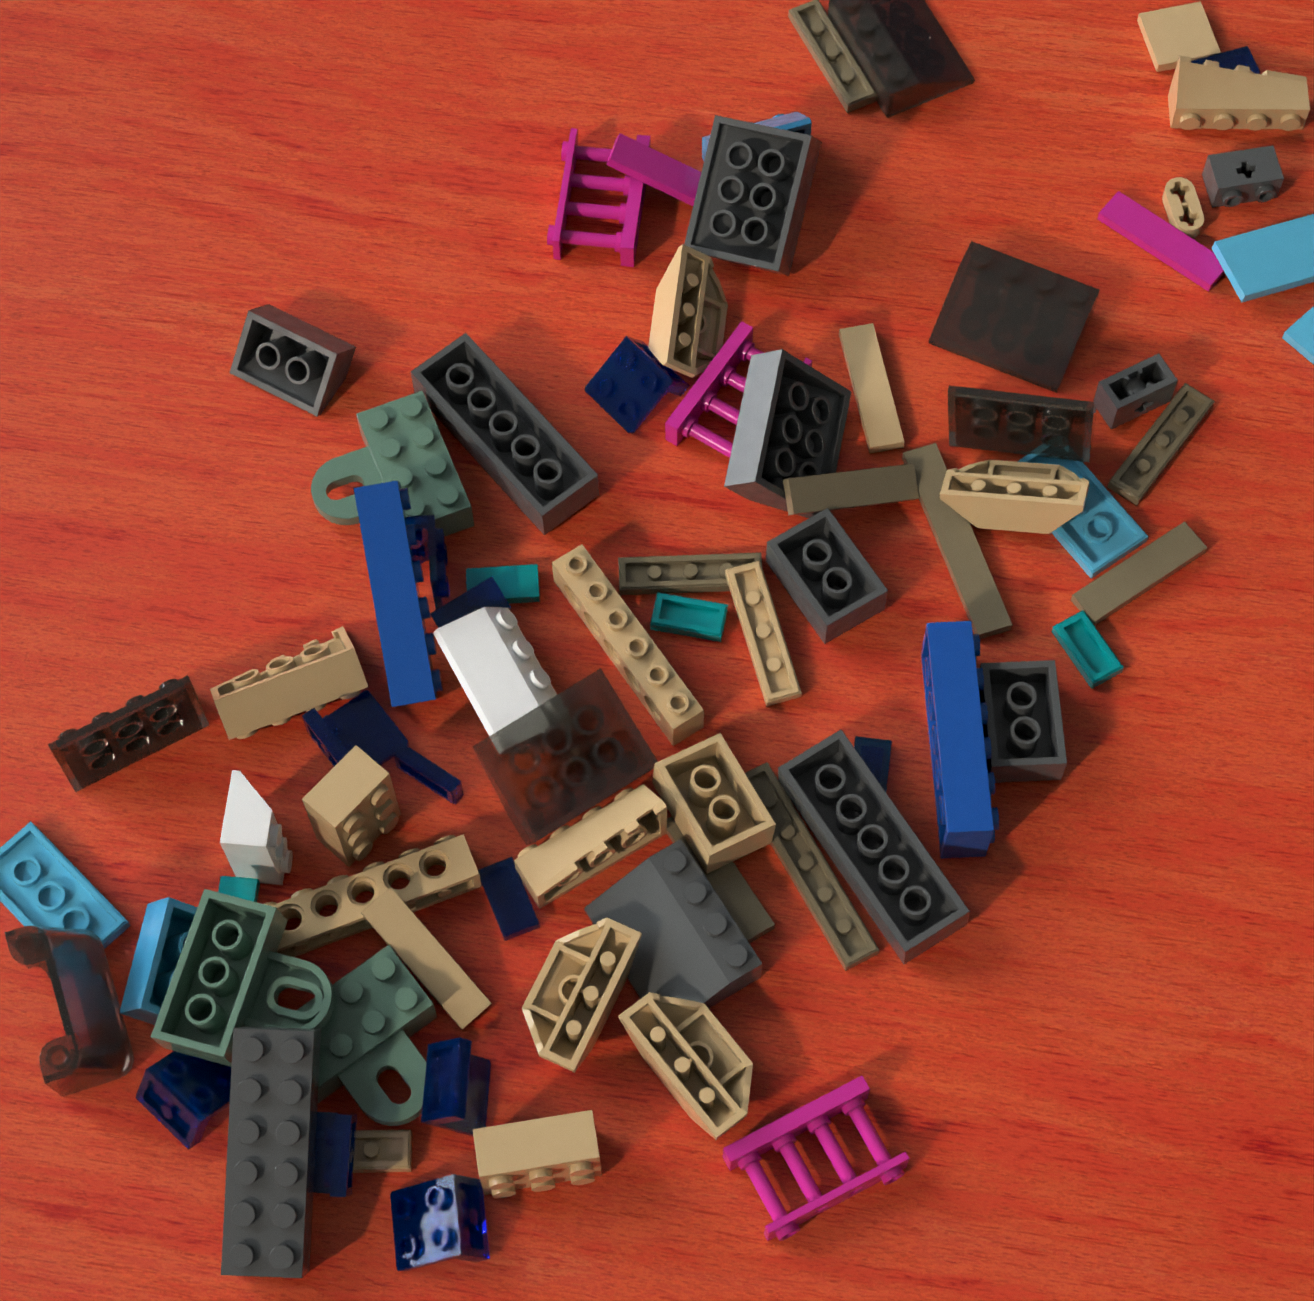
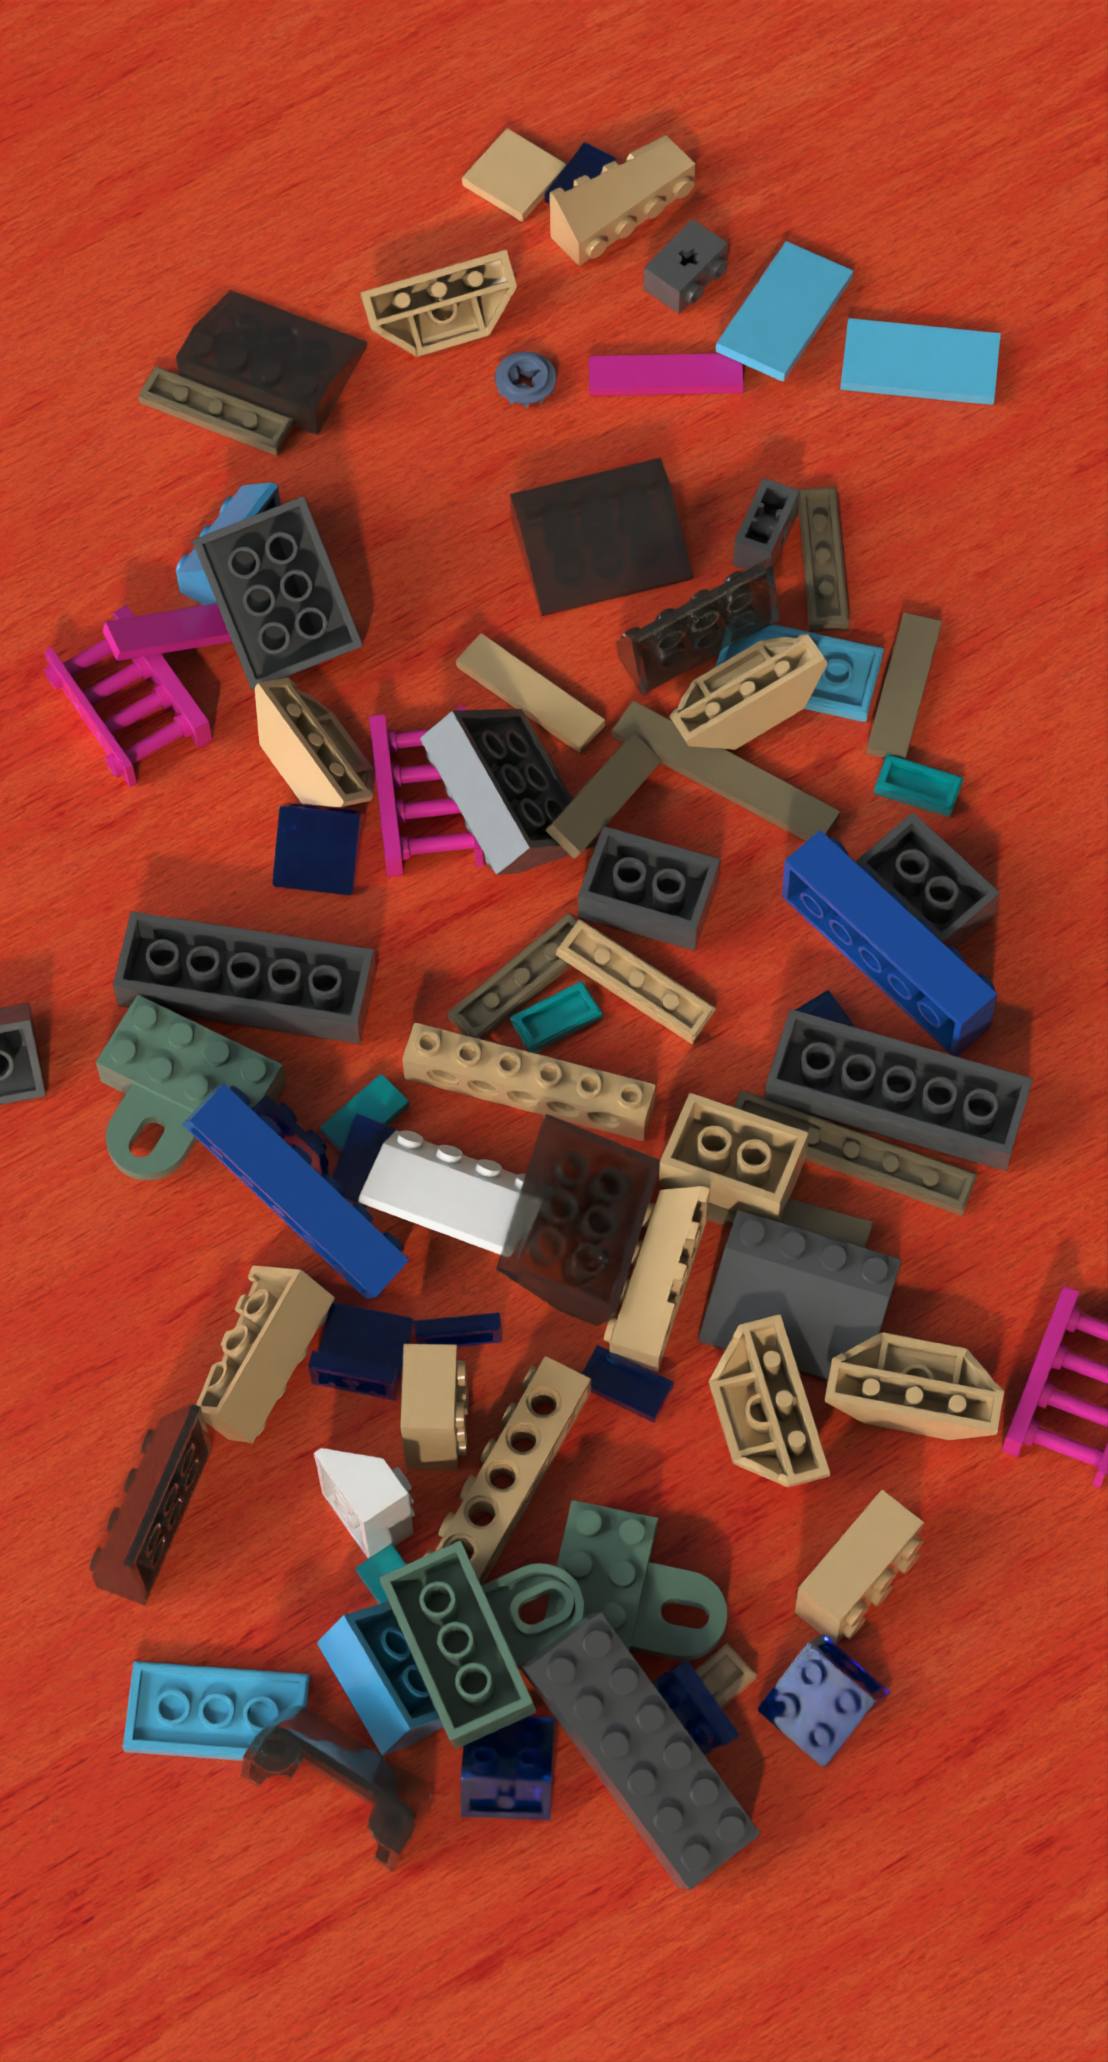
camera: 40 degrees left, 0 degrees up
(426, 958) = (609, 1485): tan tile -> none
(455, 1087) = (738, 1571): clear blue bracket -> none
(1043, 85) = (442, 305): none -> tan wedge
(1074, 175) = (530, 366): none -> sand blue gear
(1190, 206) = (660, 329): tan beam -> none

